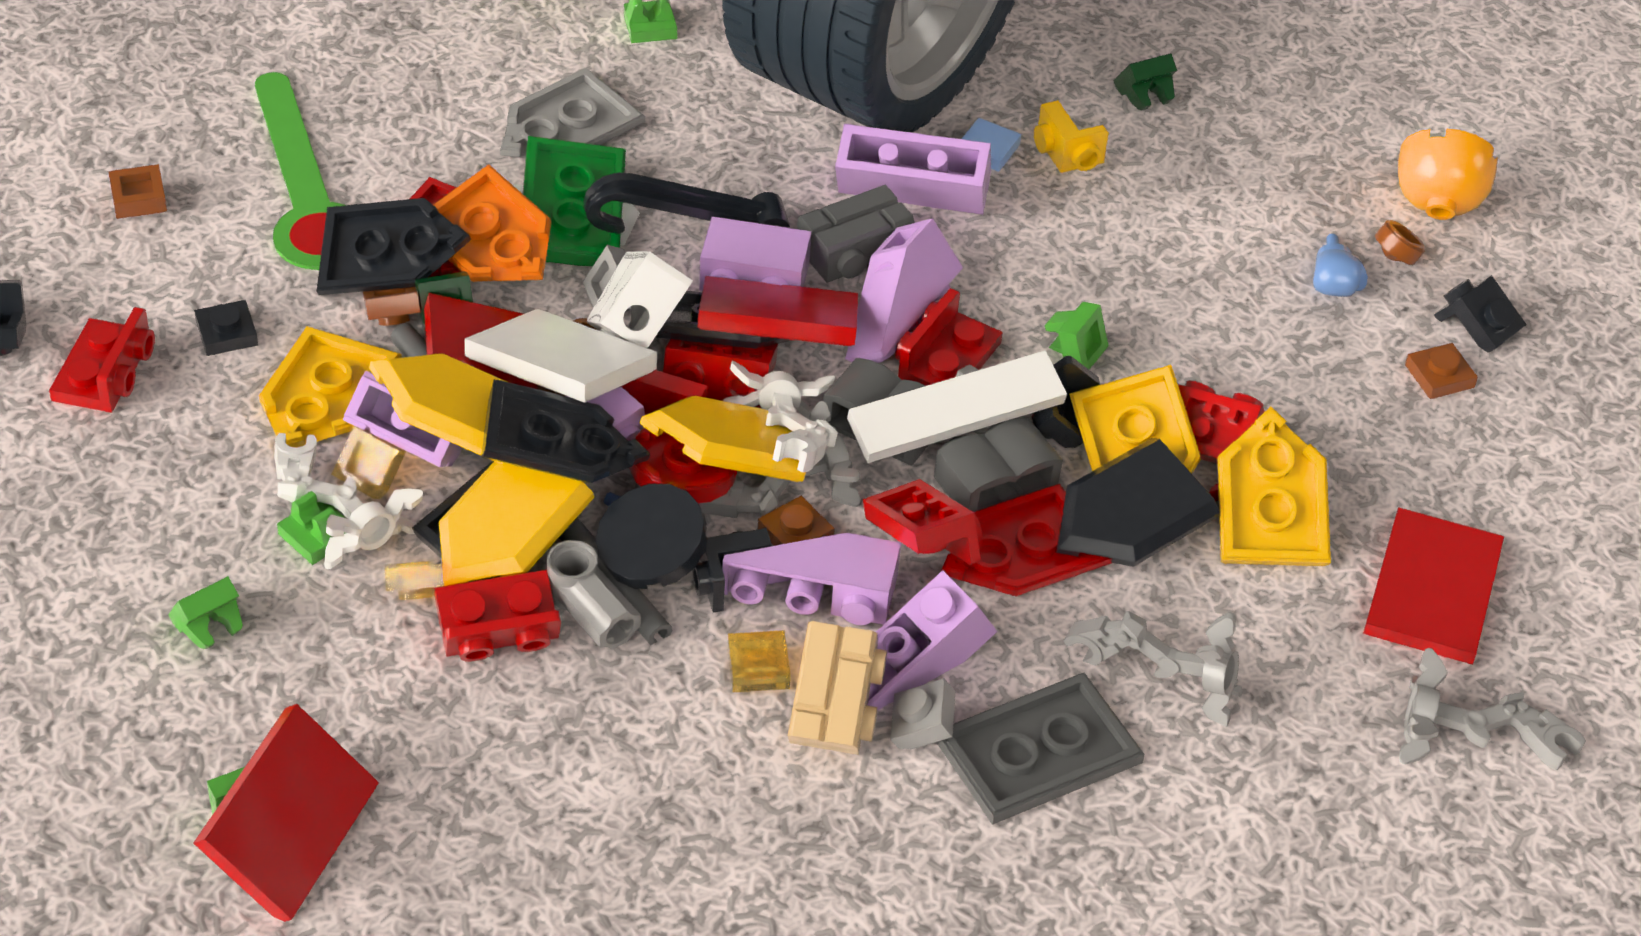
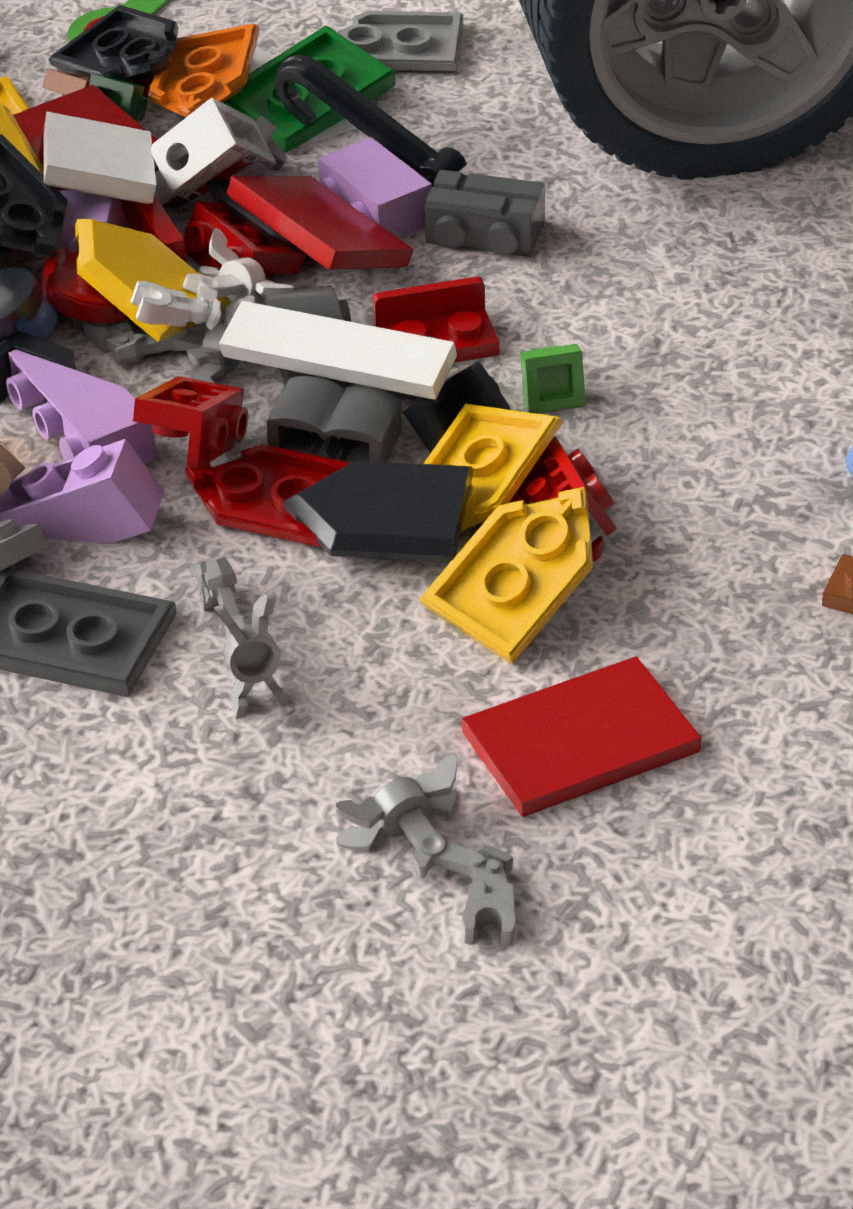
camera: 50 degrees right, 5 degrees down
(795, 523) = (131, 372): dark orange plate -> none
(899, 285) = (472, 247): lavender slope -> none
(915, 167) = (596, 189): lavender brick -> none
(1003, 141) = (712, 215): light blue tile -> none
(1066, 144) = (774, 242): yellow bracket -> none

